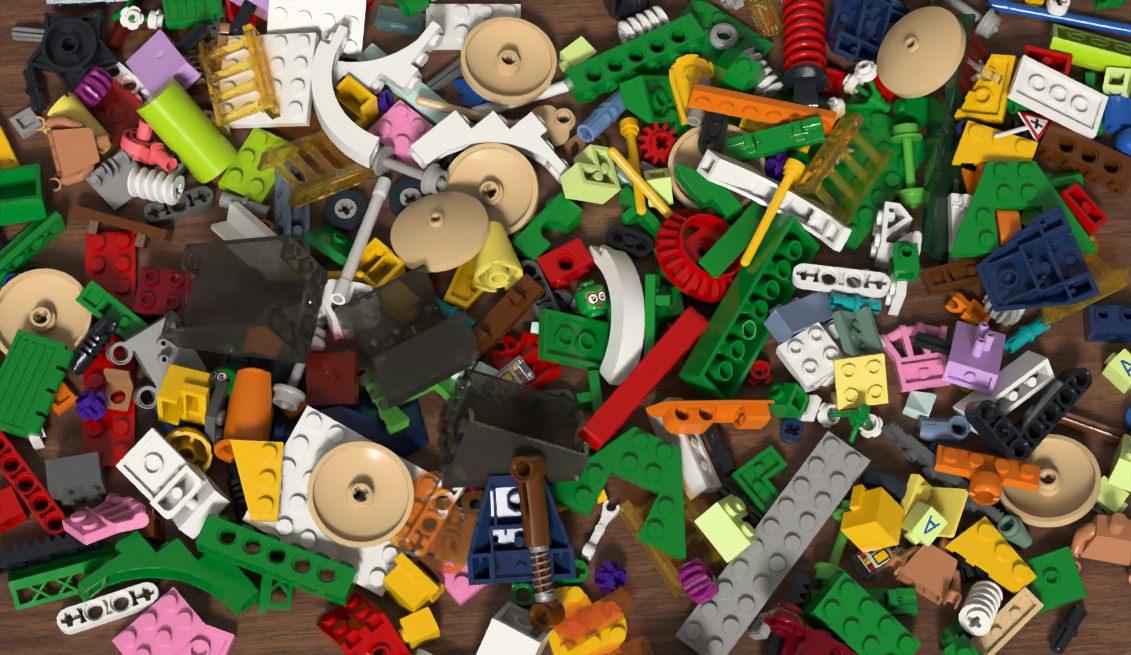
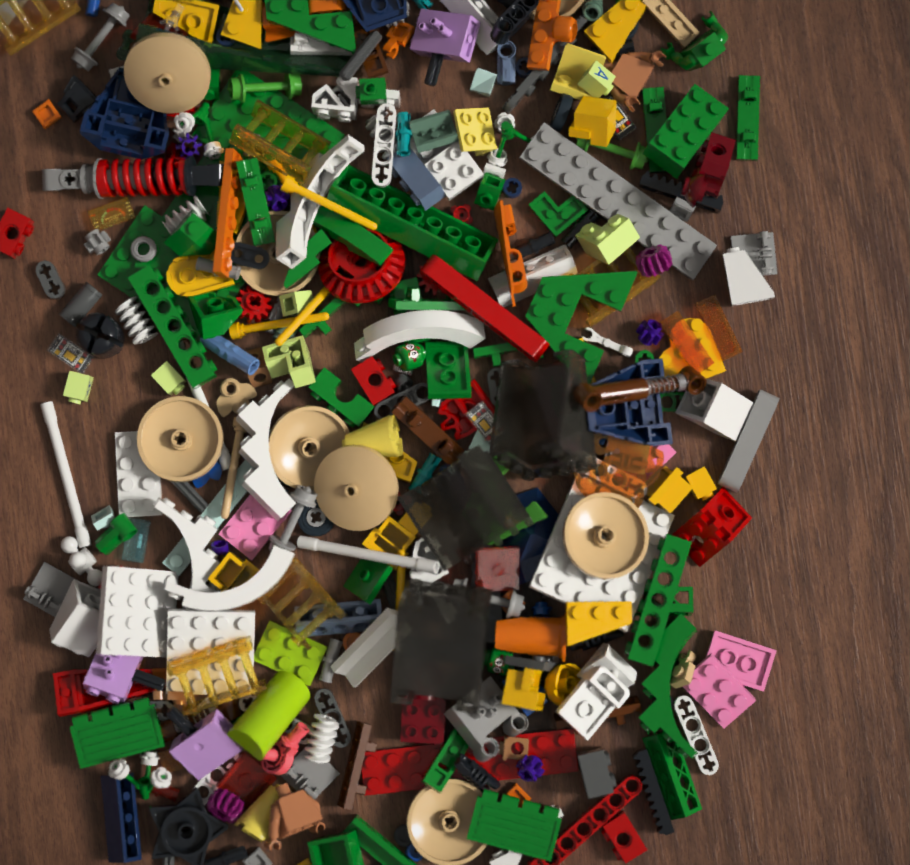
camera: 85 degrees left, 20 degrees up
(106, 519) = (638, 754): bright pink plate -> none
(186, 589) = (683, 673): none -> tan plate
(337, 218) = (334, 562): black bush -> none
(630, 242) = (347, 327): black plate -> none
(843, 78) = (188, 139): none -> dark purple gear
(921, 370) = (453, 79): bright pink plate -> none
(946, 257) = (360, 55): none -> dark grey axle
(980, 607) = (661, 36): white piece -> none

